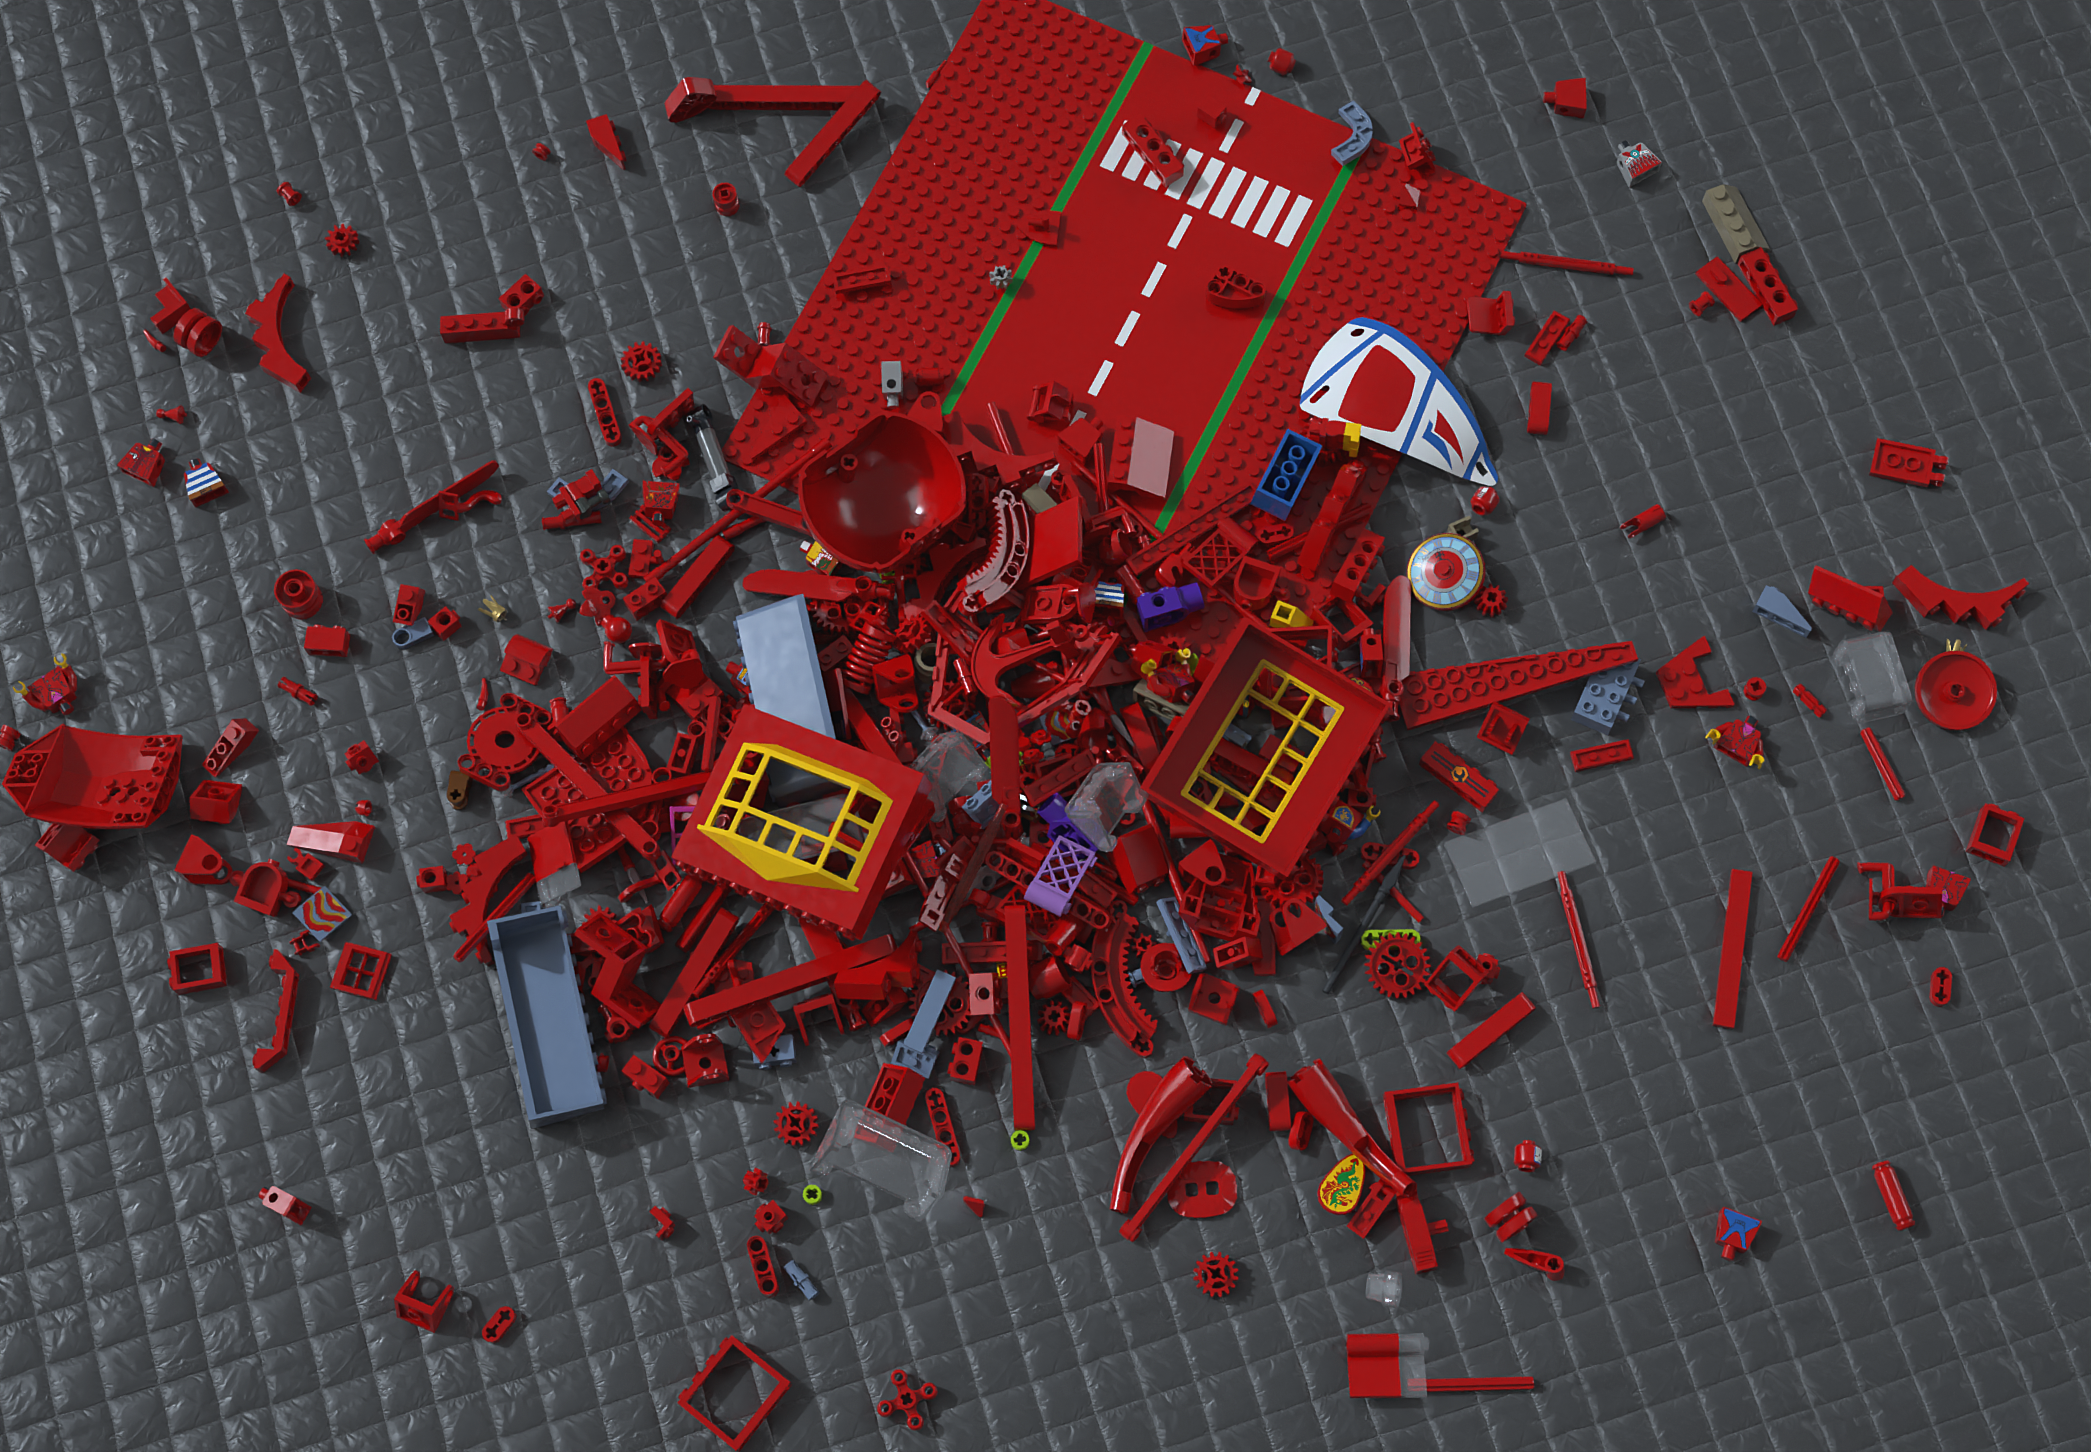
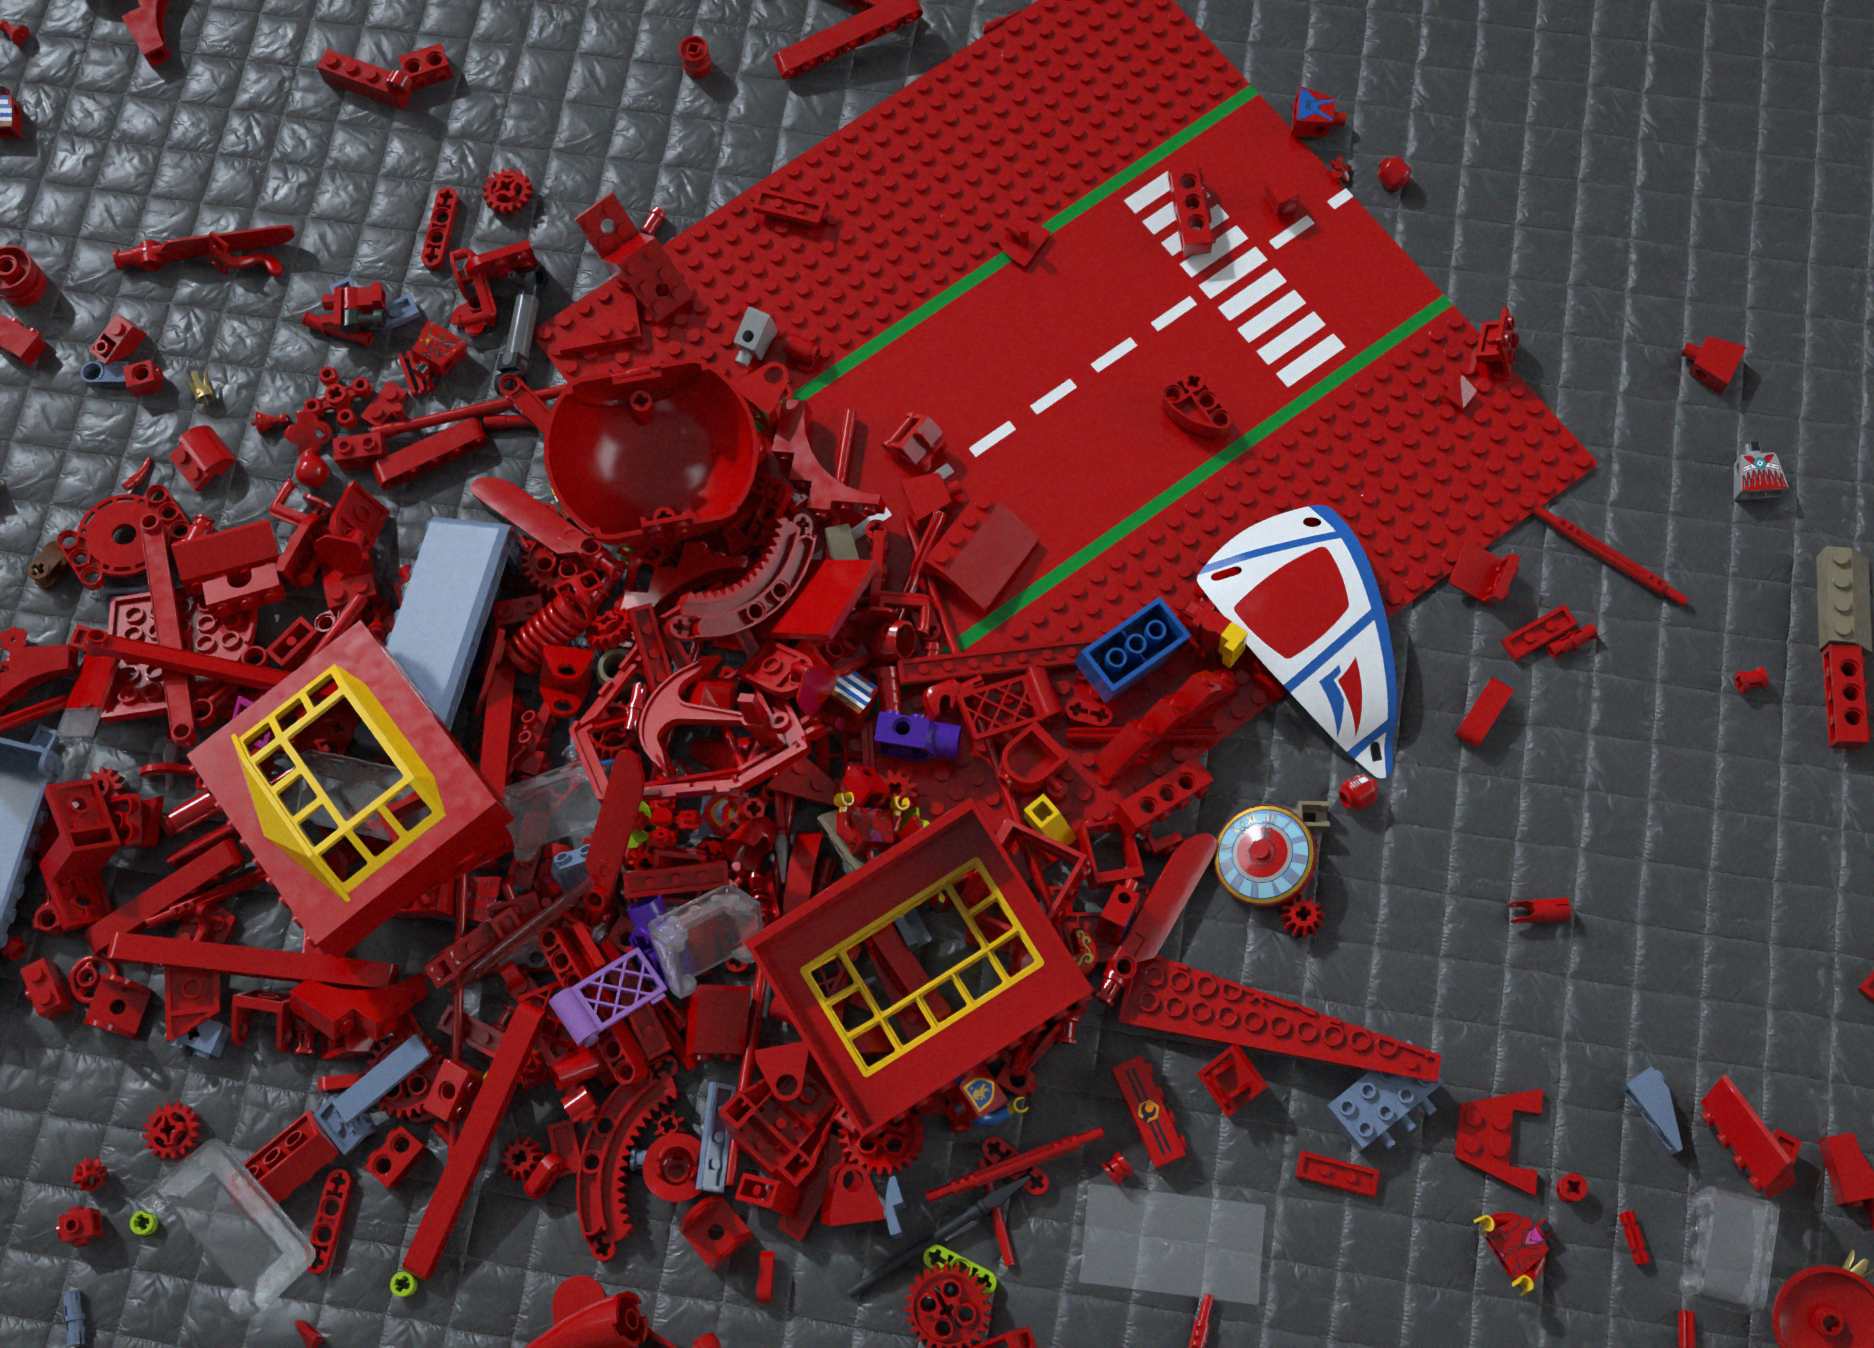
camera: 30 degrees right, 0 degrees up
(614, 747) = (263, 589): none -> red arch
(765, 1276) = (45, 1292): red beam -> none
(1000, 277) = (943, 268): light grey gear -> none
(1048, 978) = (537, 1109): red piece -> none
(1285, 762) = (948, 989): red brick -> none
(1361, 136) = (1439, 299): sand blue plate -> none
(1728, 289) = (1795, 677): red piece -> none

